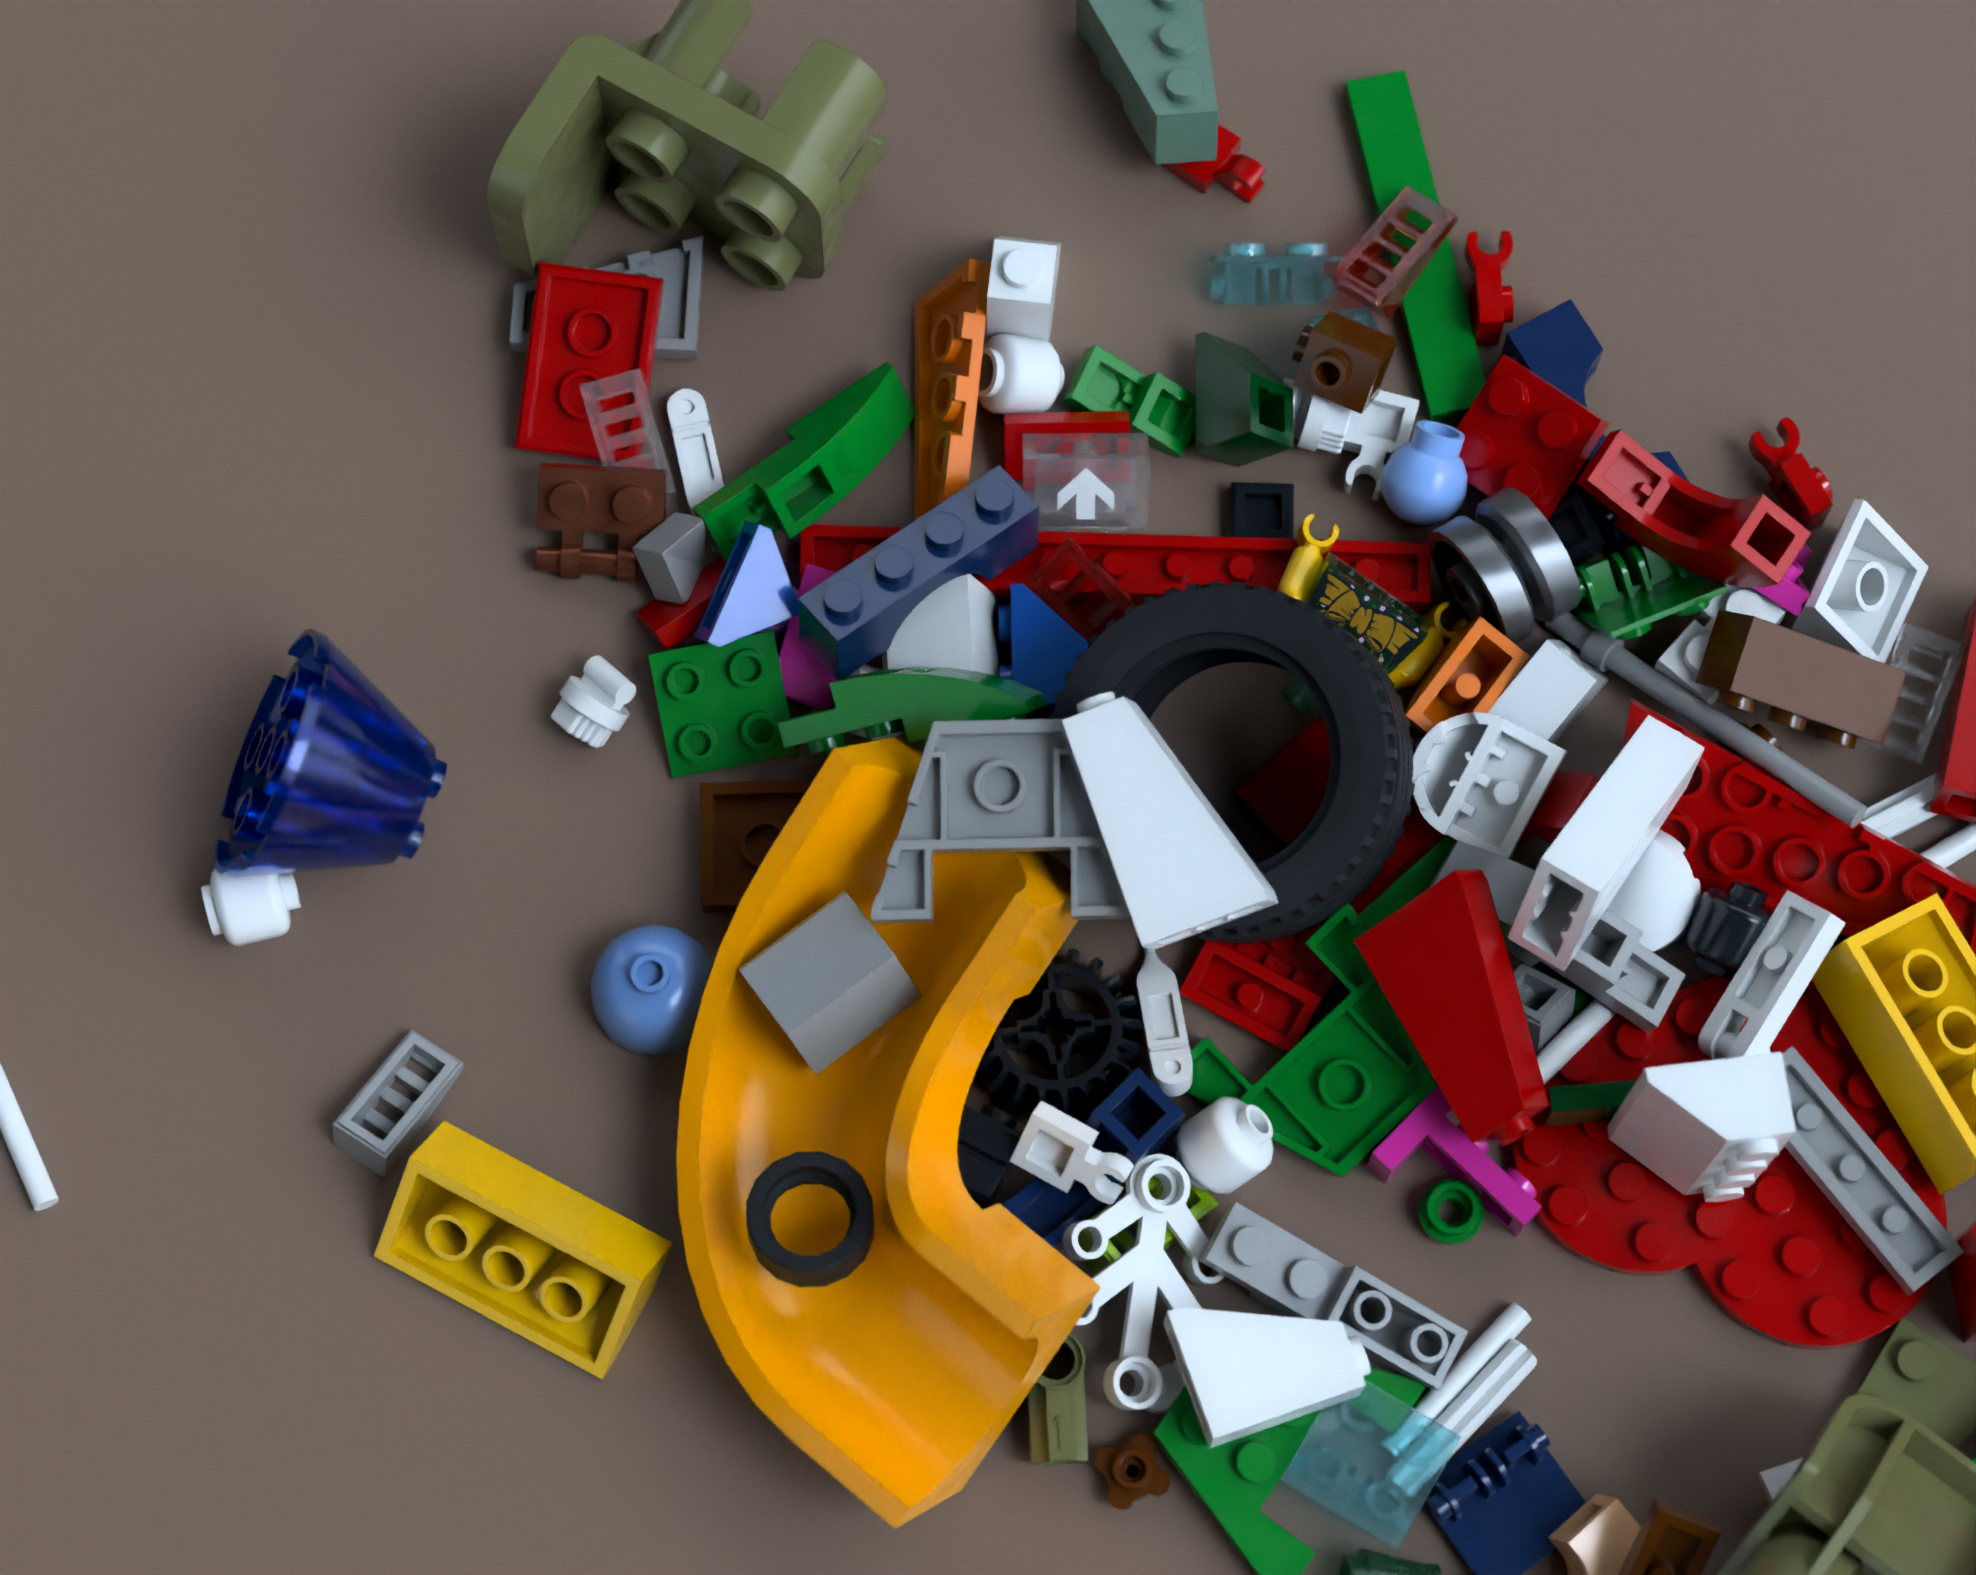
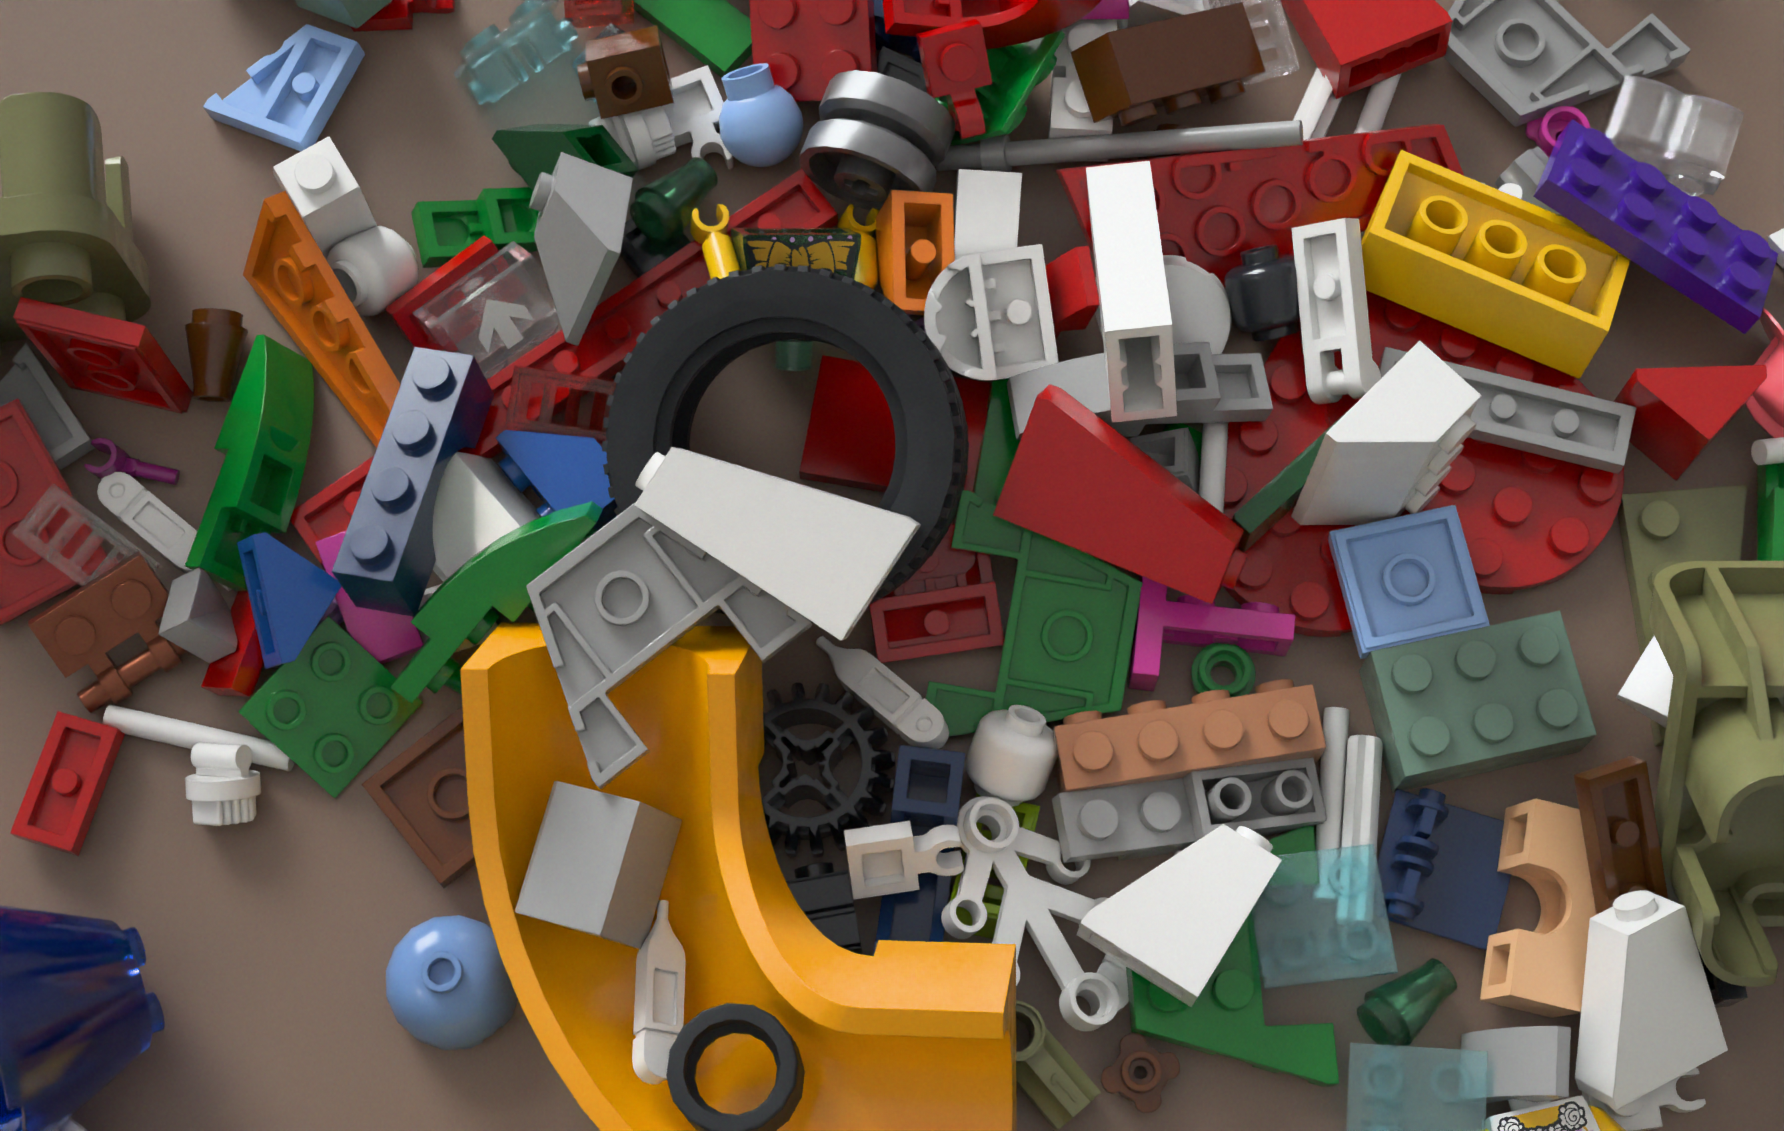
camera: 35 degrees left, 0 degrees up
(478, 613) = (67, 783): none -> red plate
(598, 643) = (188, 734): none -> white bar
(707, 387) = (122, 462): none -> magenta hand
(753, 295) = (104, 355): none -> red tile
(798, 1117) = (658, 999): none -> white piece
(845, 349) = (214, 351): none -> reddish brown cone
(1067, 176) = (292, 89): none -> light blue wing
(1199, 468) = (579, 235): none -> light grey slope
(1295, 492) = (667, 204): none -> clear green cone
(1362, 1232) = (1171, 742): none -> nougat brick
(1614, 553) = (953, 66): none -> red plate
(1639, 1389) = (1477, 701): none -> sand green brick
(1657, 1250) = (1407, 579): none -> light blue plate

